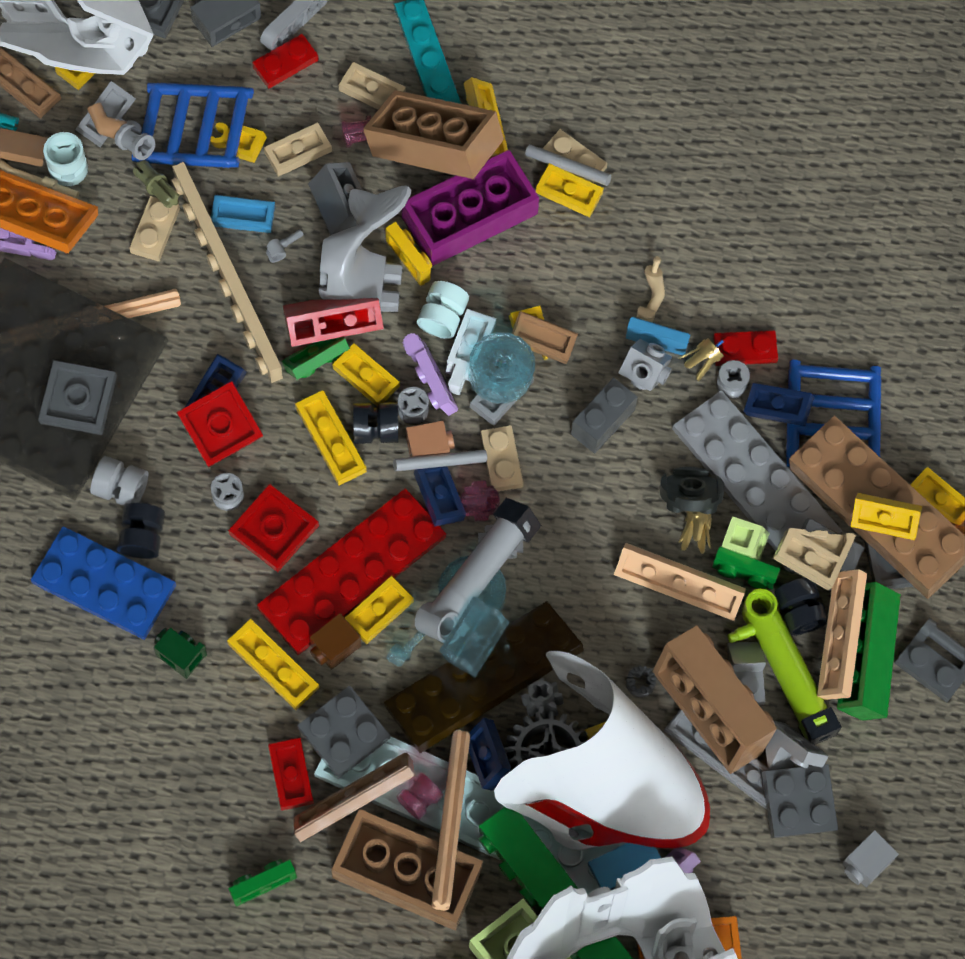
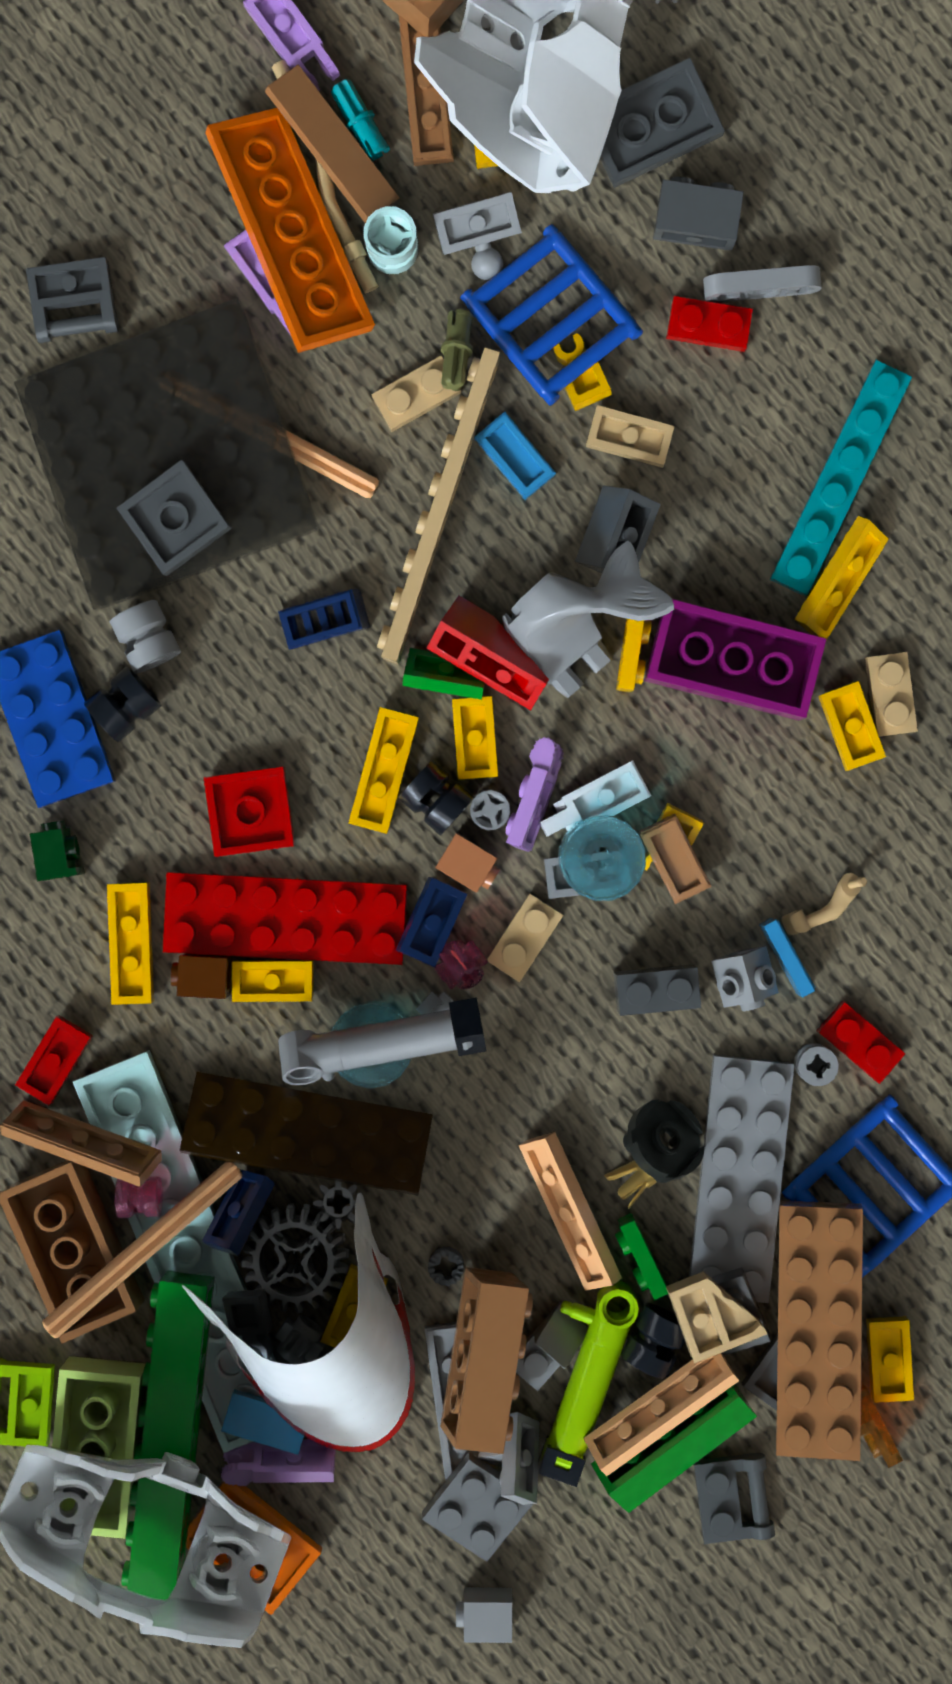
camera: 40 degrees right, 20 degrees up
(104, 125) = (462, 241): medium nougat arm -> none
(130, 139) = (473, 284): light grey bush -> none
(220, 424) = (289, 663): red plate -> none
(225, 485) = (232, 738): light grey wheel -> none
(275, 247) = (511, 523): light grey hand -> none
(343, 732) = (130, 1071): dark grey plate -> none
(354, 132) = (706, 471): clear pink bush -> none
(368, 86) = (764, 436): tan plate -> none
(400, 654) = (253, 1040): clear light blue hand -> none
(434, 134) = (767, 554): medium nougat brick -> none
(440, 460) = (460, 892): light grey bar -> none
(443, 309) = (608, 740): light aqua wheel -> none
(474, 636) = (322, 1101): clear light blue hinge -> none
(568, 165) = (874, 701): light grey bar -> none
(706, 349) = (812, 1019): pearl gold piece -> none
(745, 538) = (666, 1234): yellowish green brick -> none
(779, 404) = (831, 1133): dark blue plate -> none
(886, 516) = (803, 1362): yellow plate -> none

